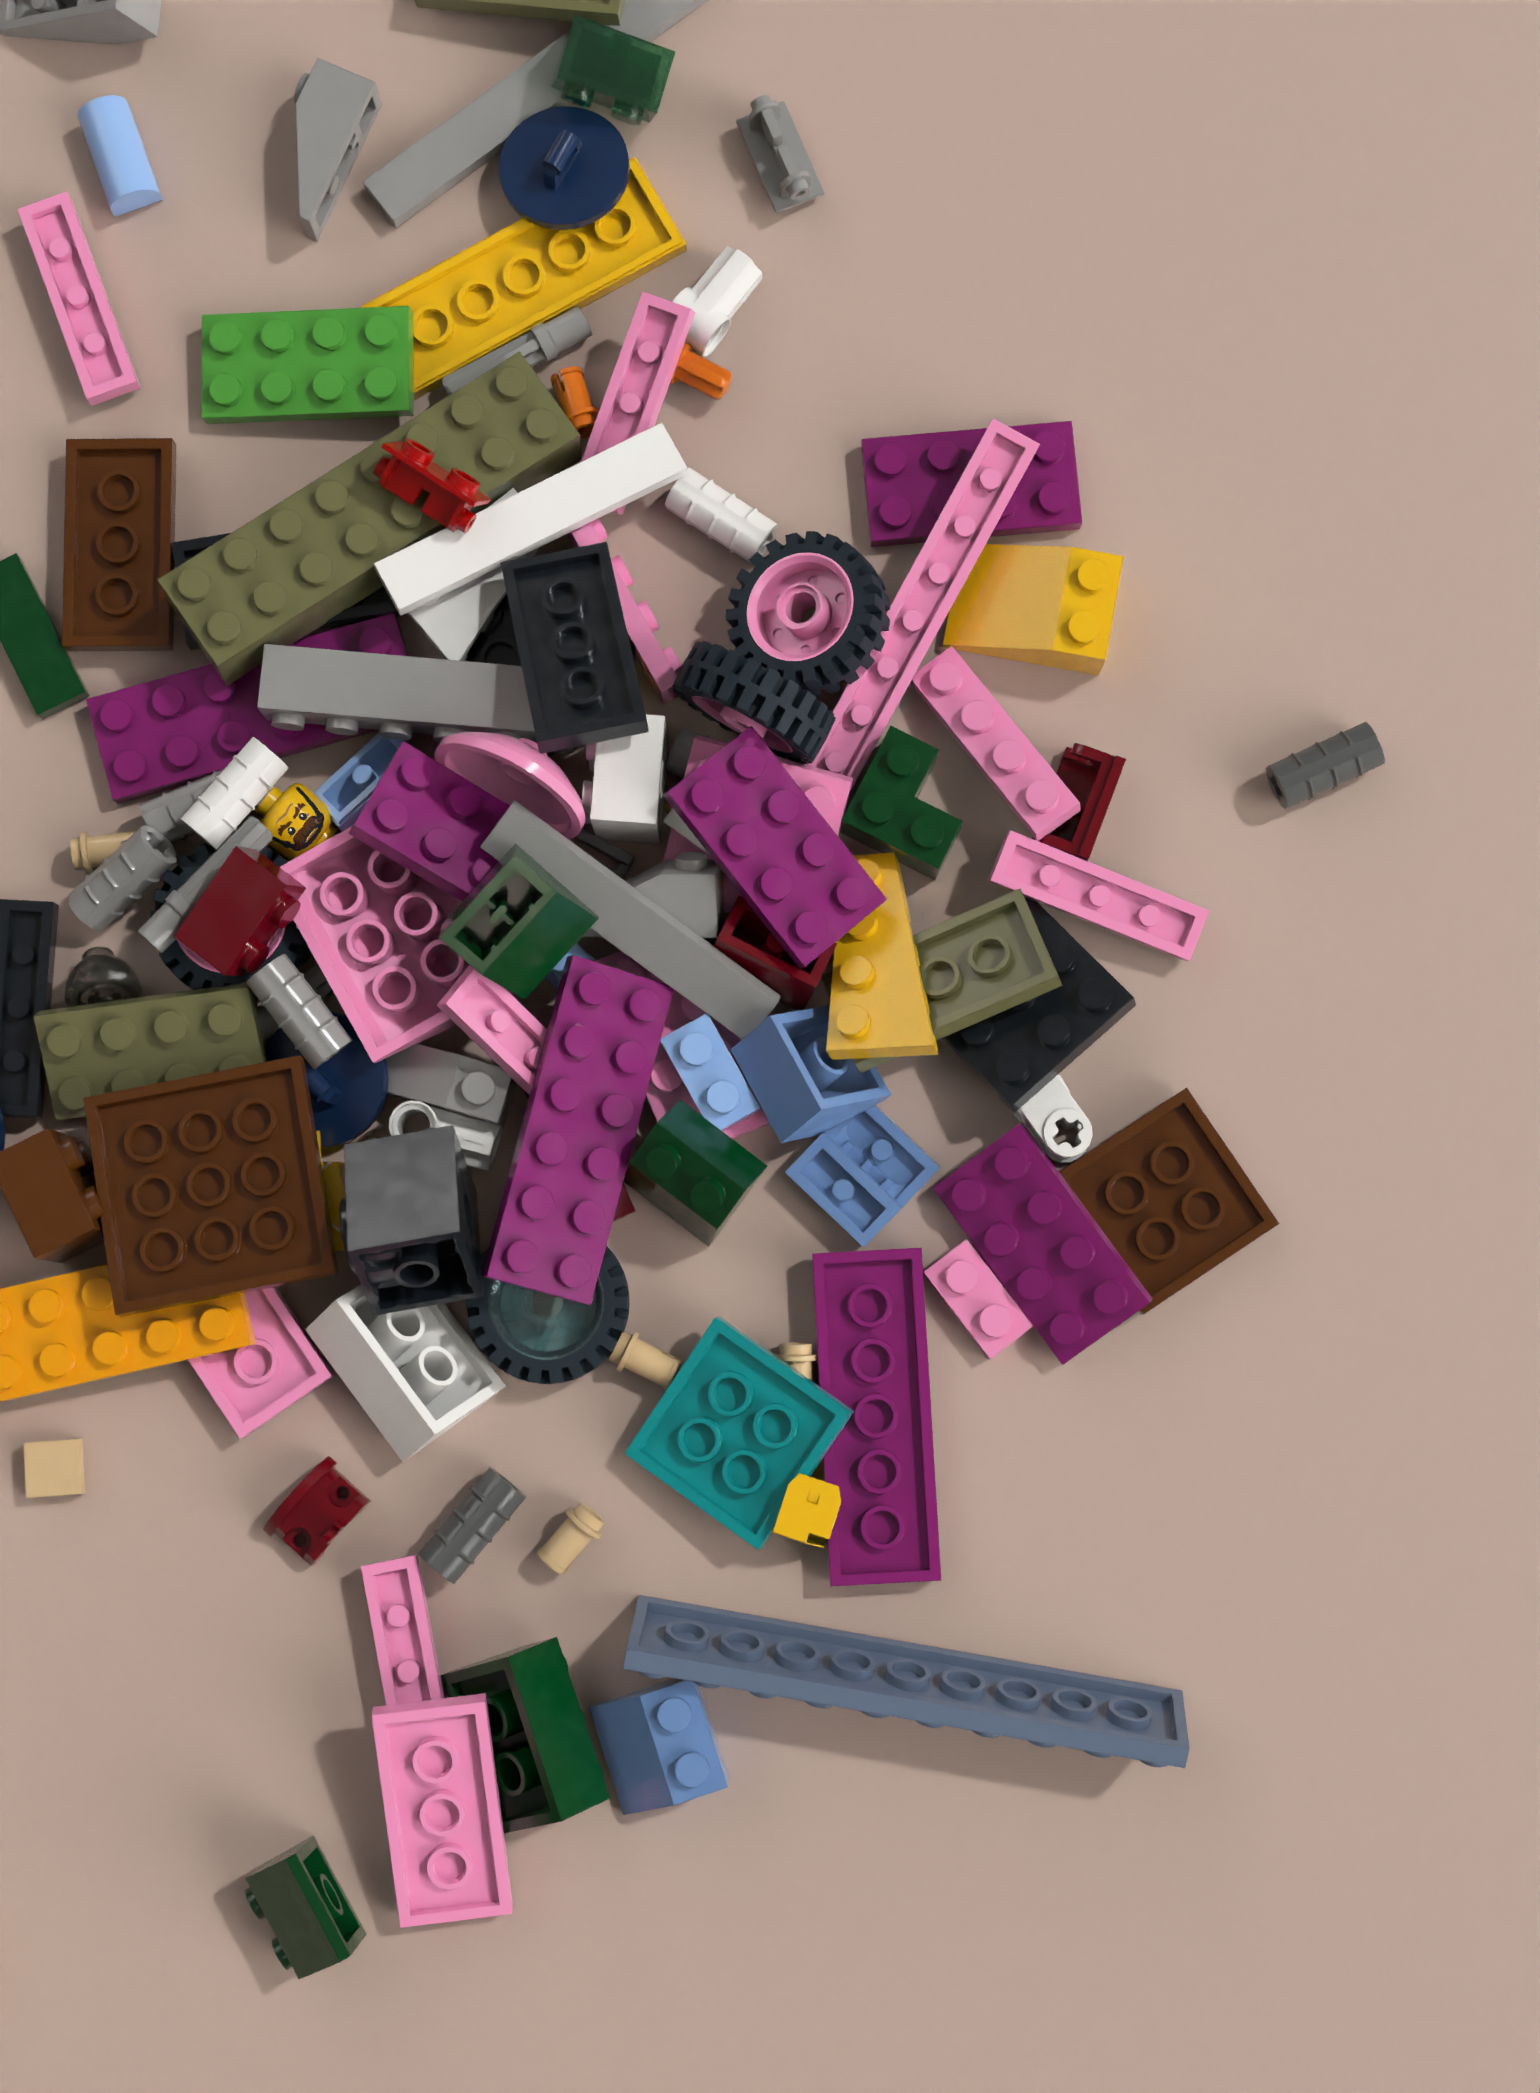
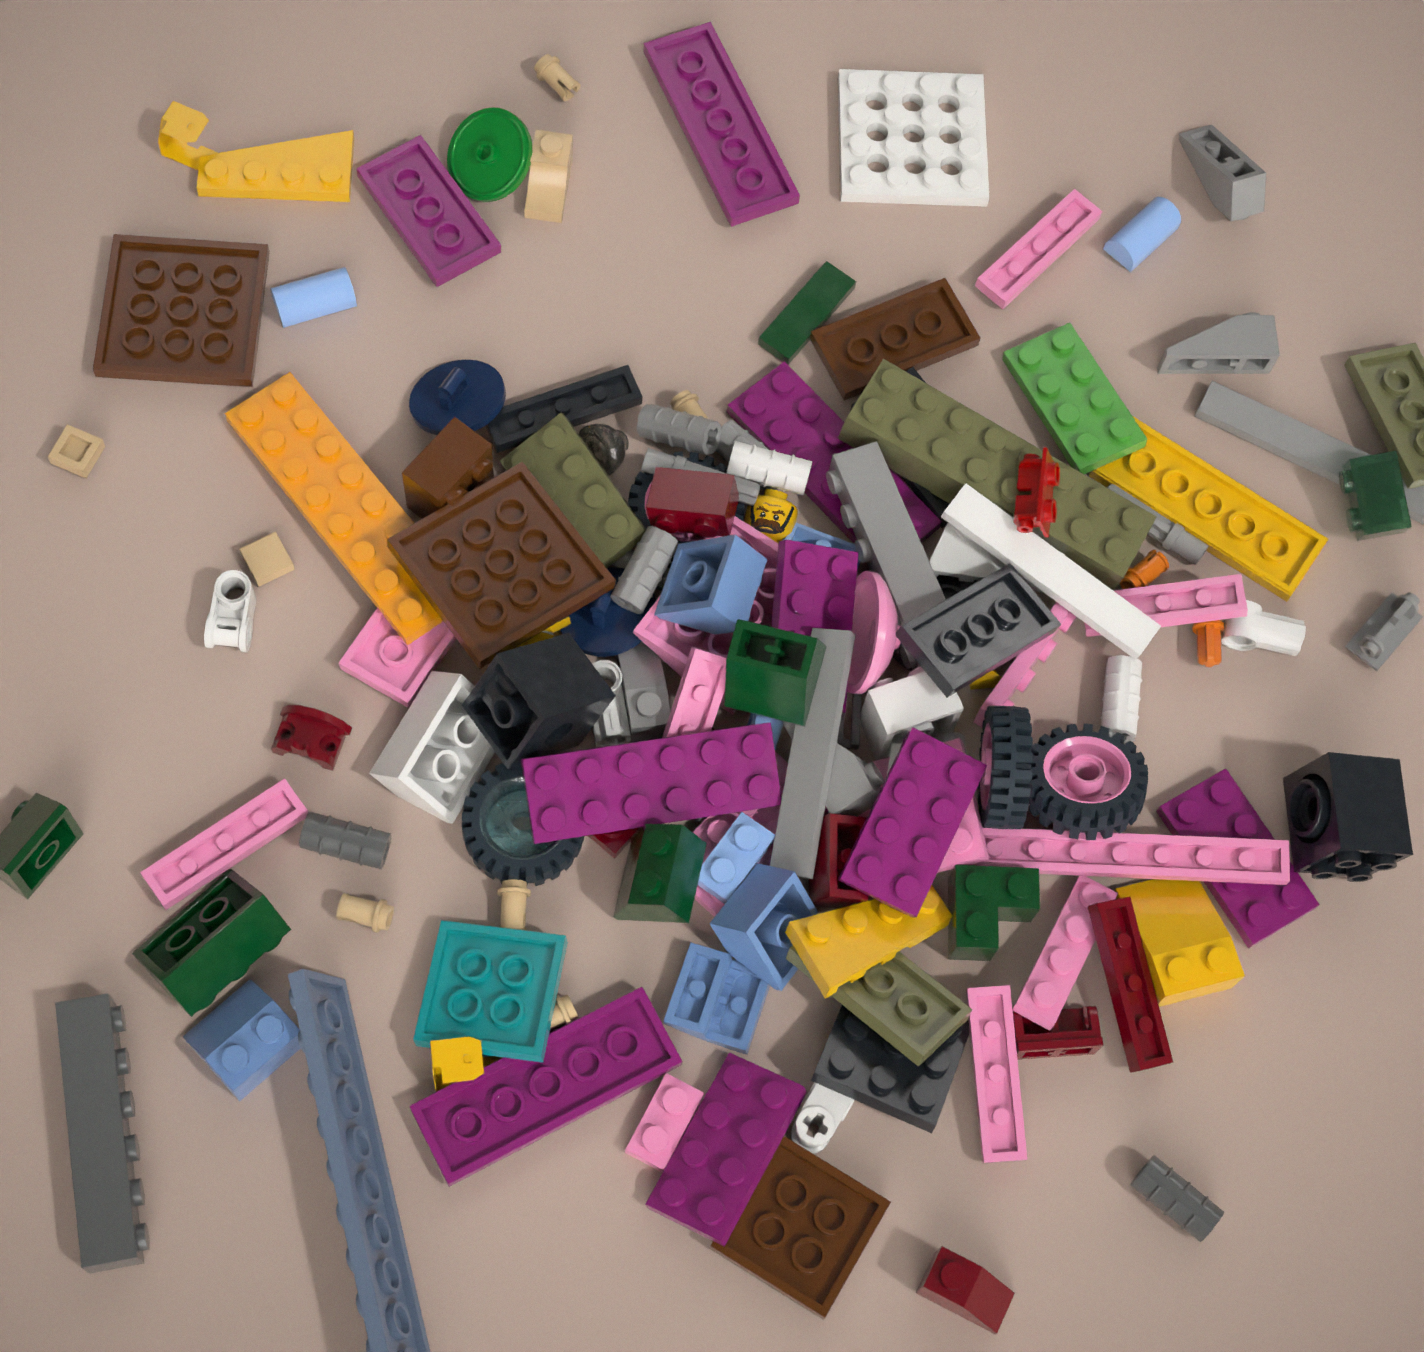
camera: 55 degrees right, 15 degrees down
(114, 1546) = (231, 620): none -> white piece
(364, 942) = (711, 584): none -> medium blue slope
(442, 1810) = (135, 904): bright pink plate -> none
(564, 168) = (1294, 497): dark blue shield -> none
(697, 1956) = (100, 1134): none -> dark grey brick
(995, 334) = (1347, 816): none -> black brick
(1066, 689) = (1130, 984): none -> dark red plate
(1316, 1053) = (965, 1289): none -> dark red slope

